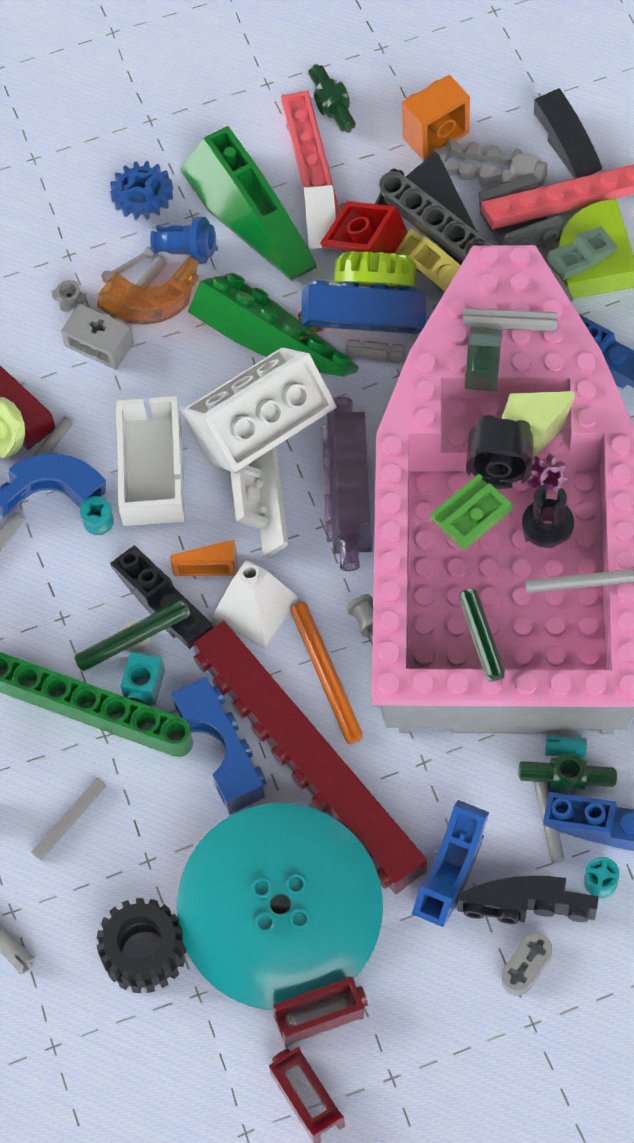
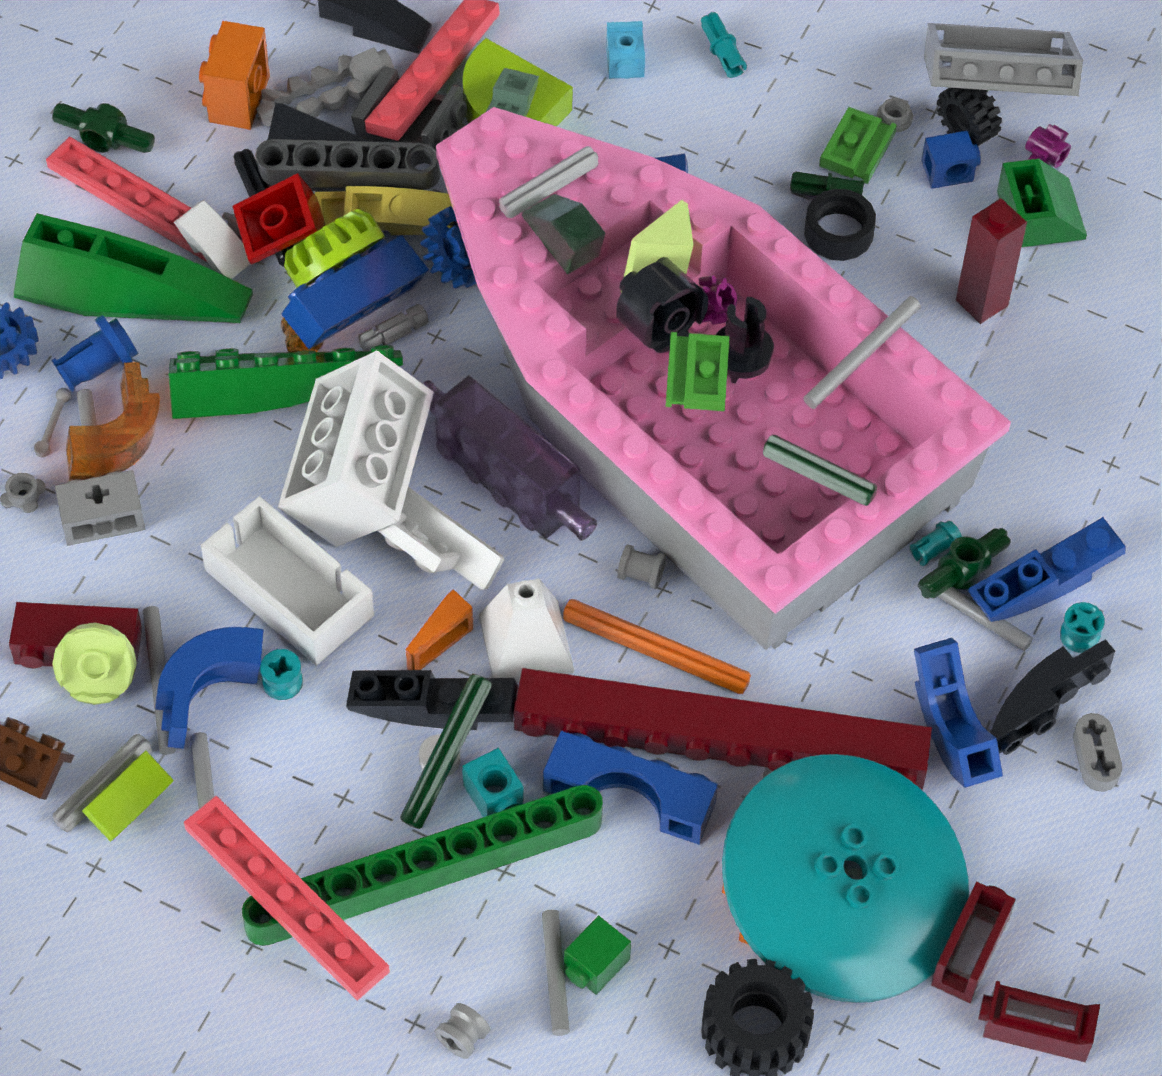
camera: 50 degrees left, 5 degrees down
(95, 828) = (596, 955): none -> green brick

